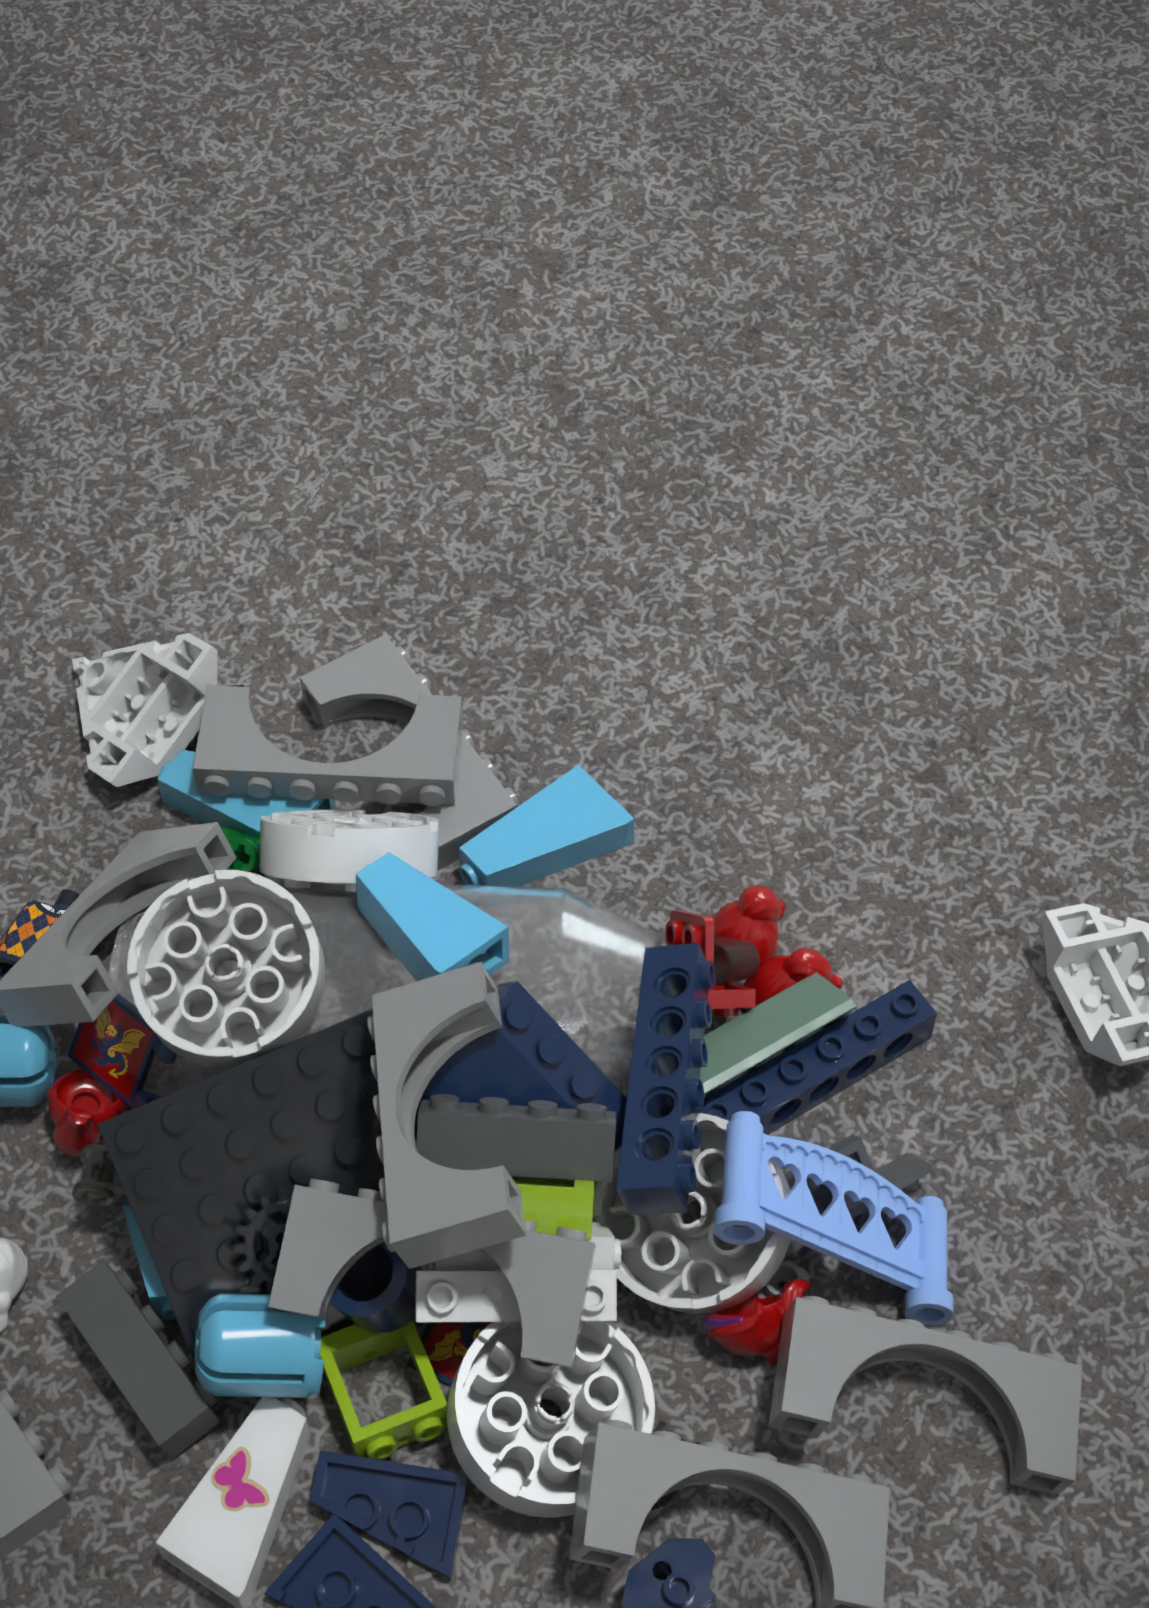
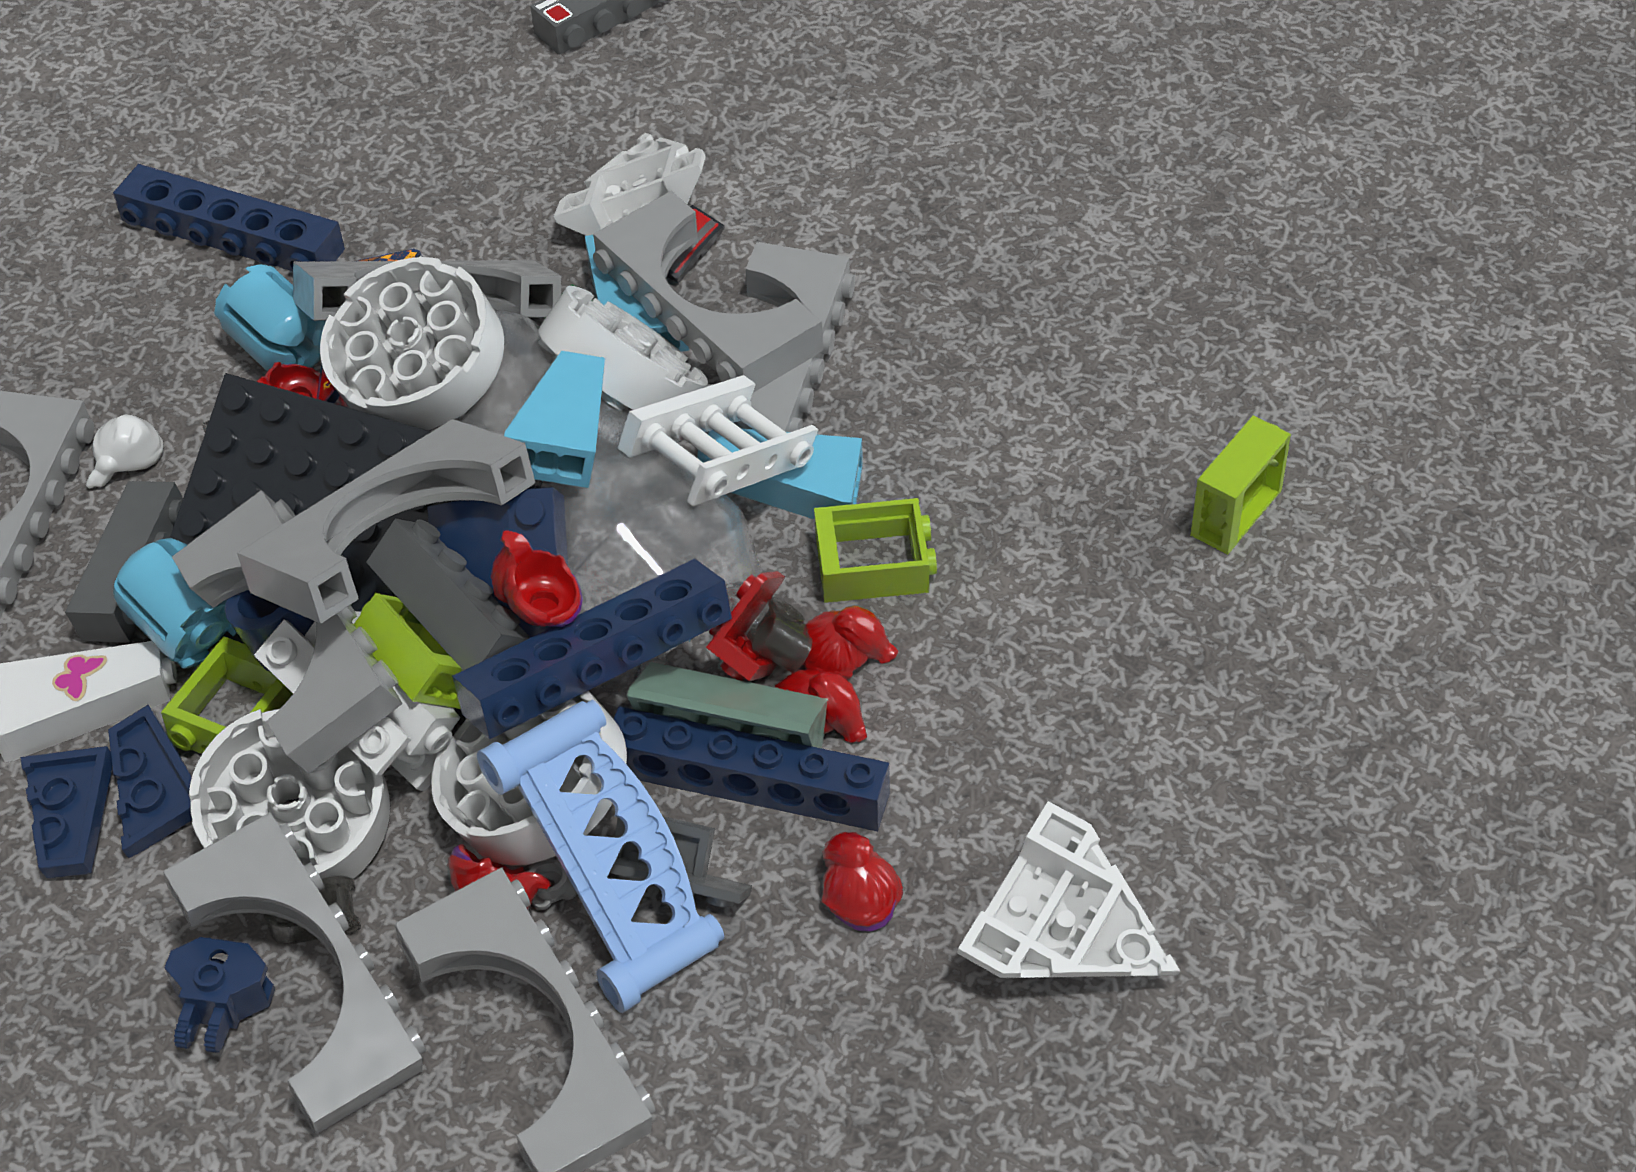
camera: 50 degrees right, 5 degrees down
(485, 859) = (717, 409): none -> white fence
(591, 1067) = (535, 583): none -> red hair
(658, 872) = (872, 522): none -> lime window
(864, 588) = (1240, 484): none -> lime window
(974, 1082) = (859, 883): none -> red hair

